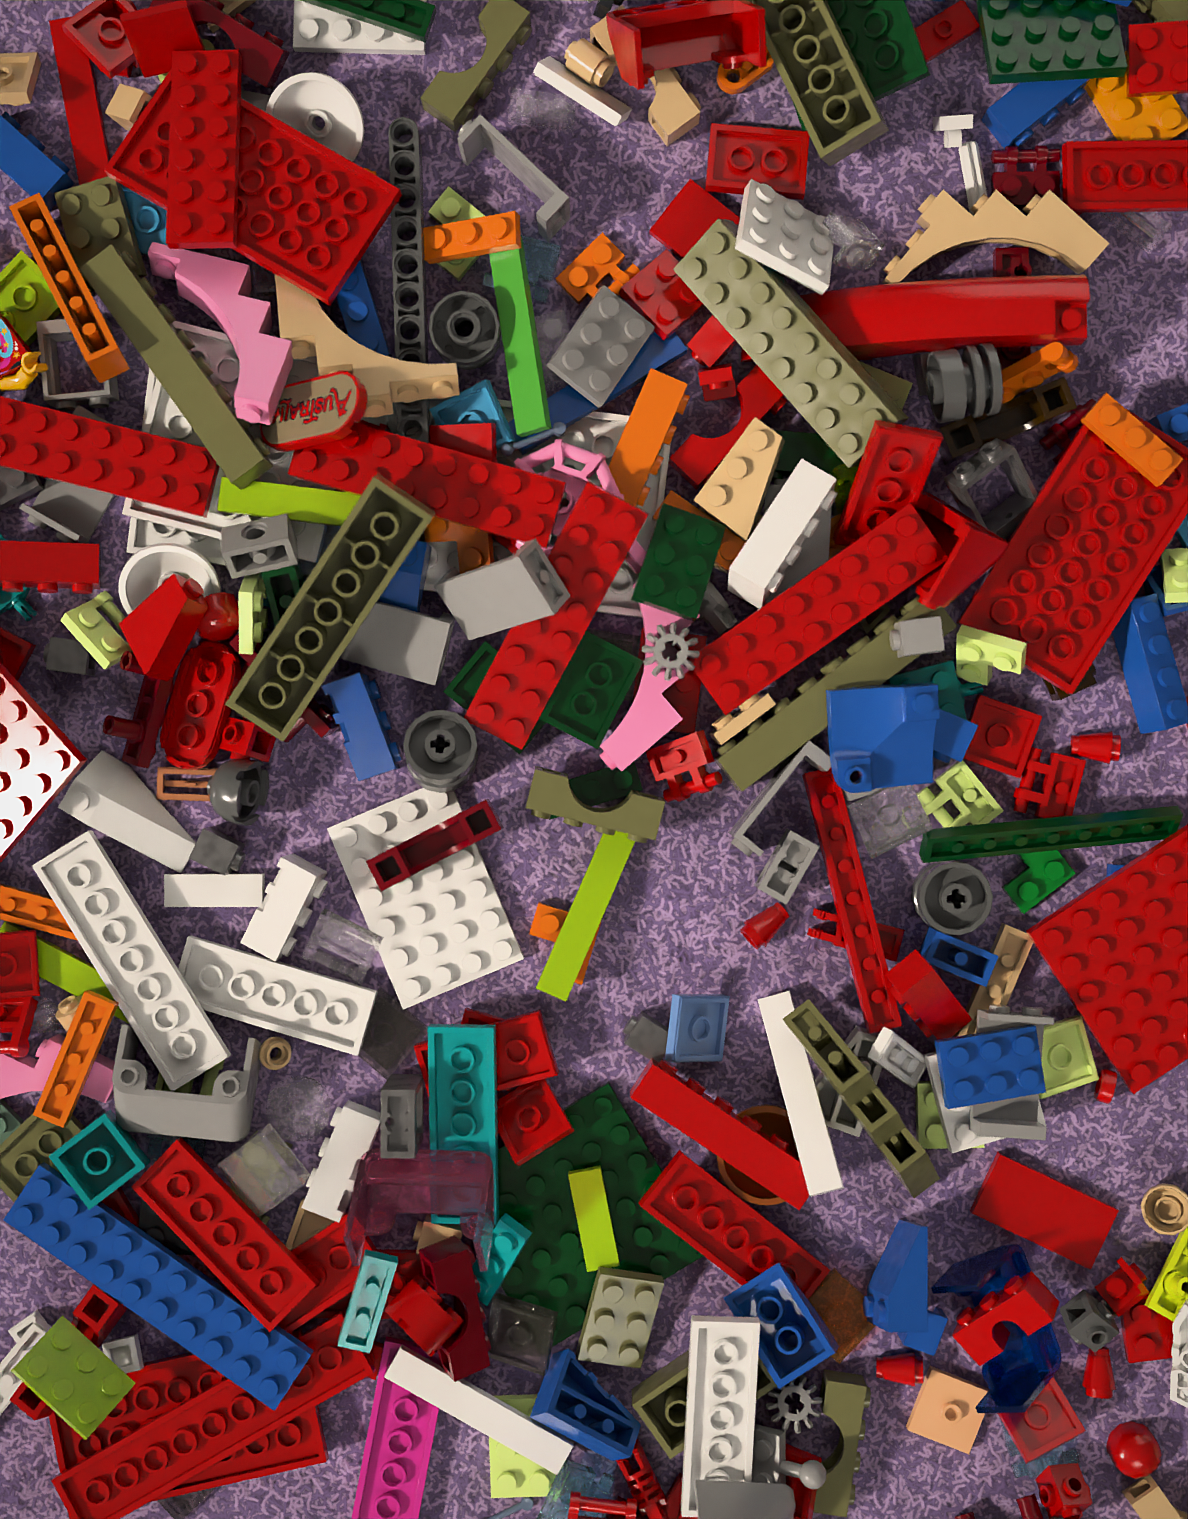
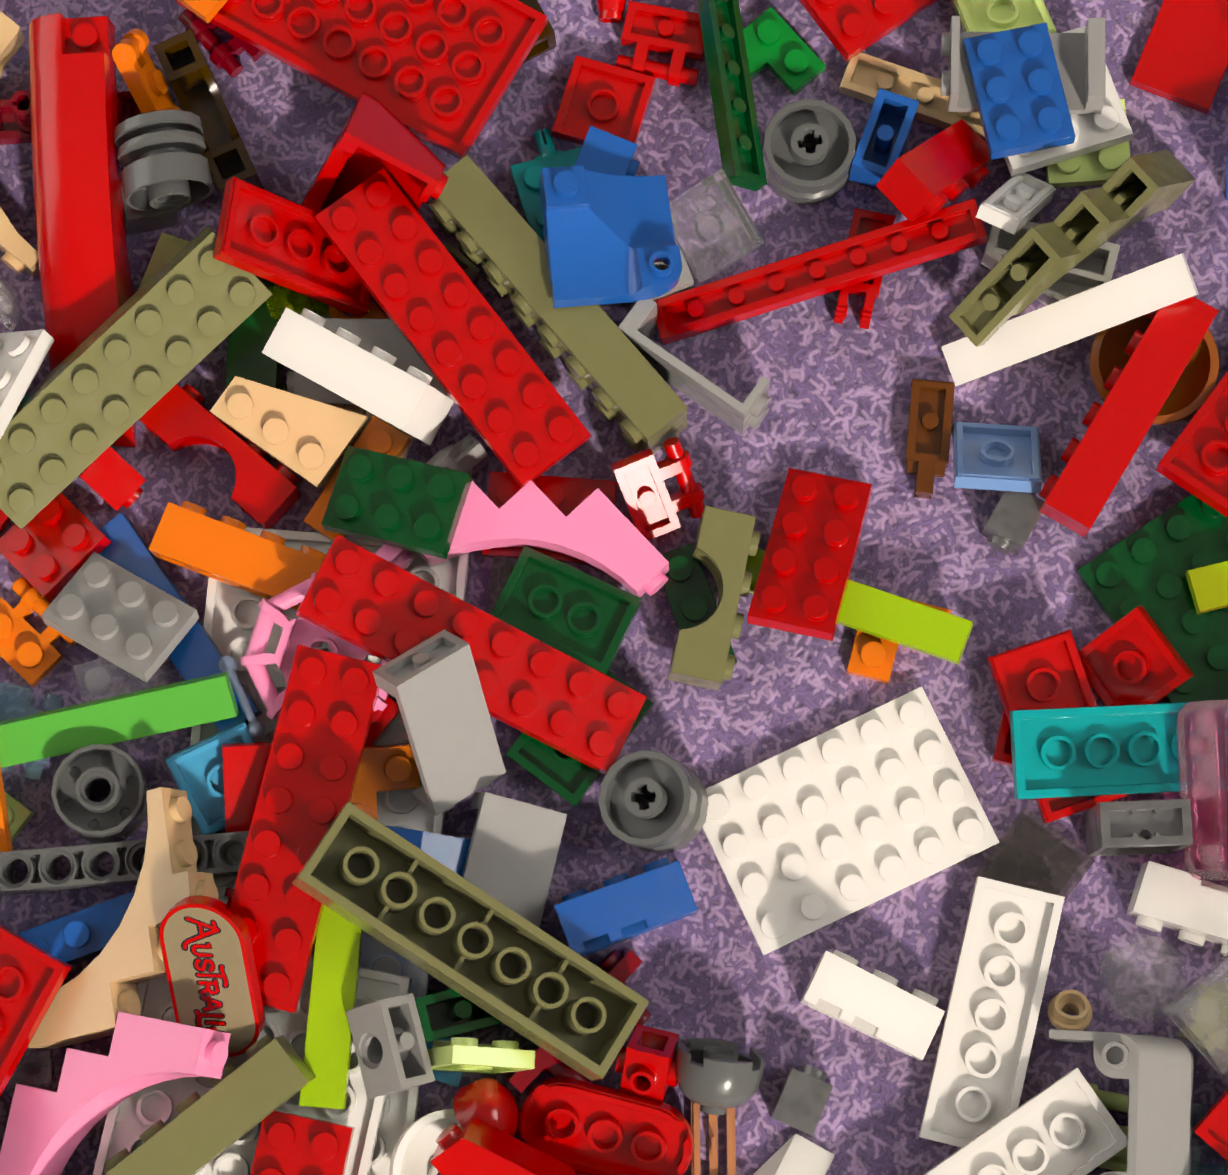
camera: 85 degrees left, 10 degrees down
(214, 890) = (855, 1106): white tile -> none
(345, 940) = (911, 920): clear plate -> none
(434, 844) = (775, 800): dark red arch -> none
(627, 880) = (810, 554): none -> red plate
(681, 656) = (519, 490): light grey gear -> none
(717, 382) = (162, 471): red bracket -> none
(721, 976) = (928, 433): none -> reddish brown hinge
(730, 725) = (607, 435): tan plate -> none
(764, 925) = (860, 382): red cone -> none
(786, 866) = (780, 355): light grey brick -> none
(917, 637) = (482, 198): light grey brick -> none
(967, 795) = (679, 141): yellowish green plate -> none
(979, 465) = (266, 140): flat silver window -> none
(981, 650) = (495, 128): yellowish green plate -> none

